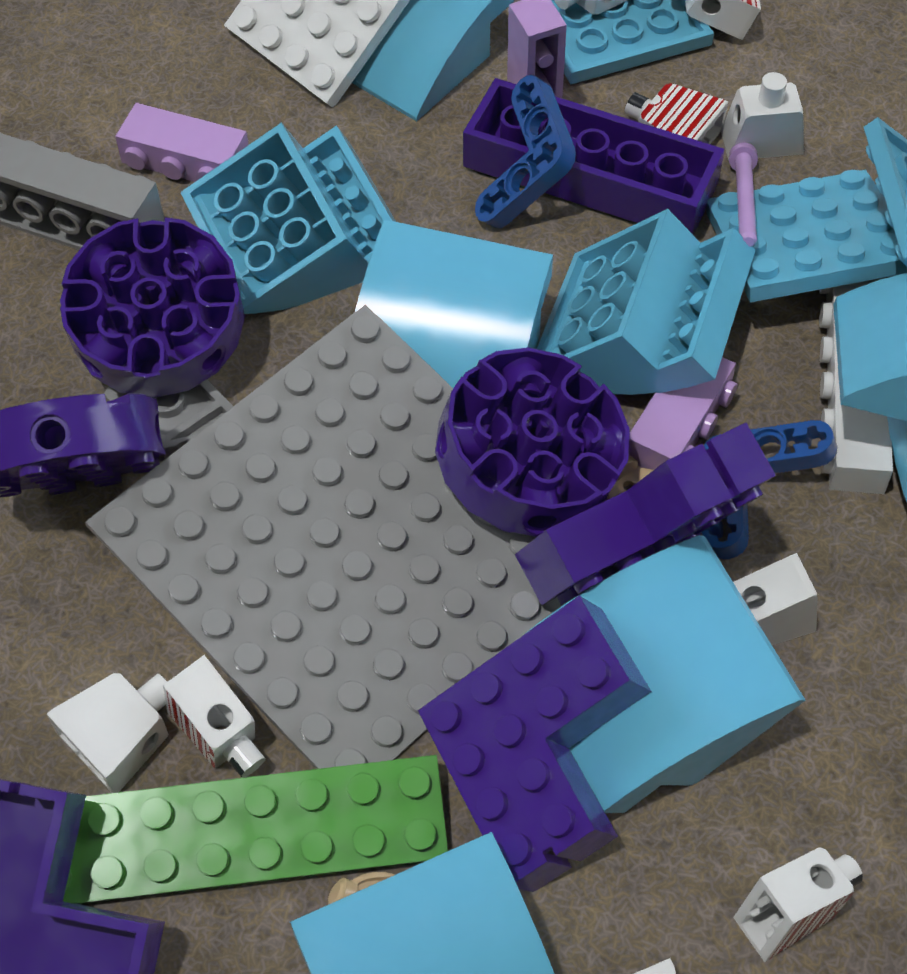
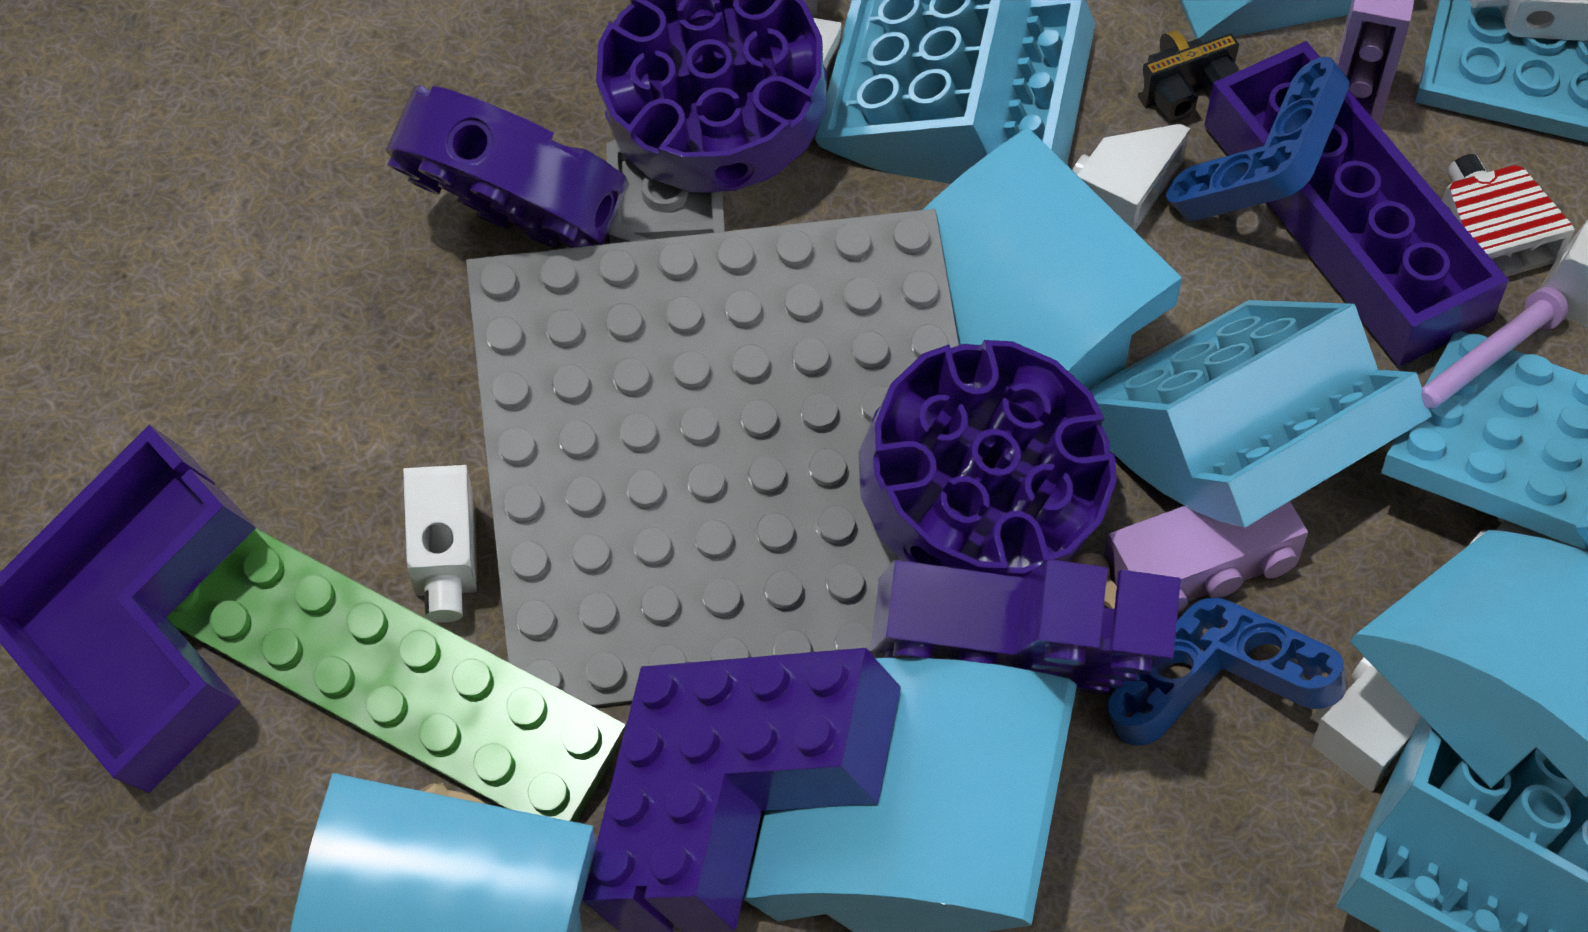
camera: 35 degrees right, 0 degrees up
(113, 727) = (344, 487): white torso -> none
(425, 138) = (1184, 68): none -> black hips
(450, 207) = (1134, 169): none -> white slope
(781, 599) = (1112, 816): white torso -> none

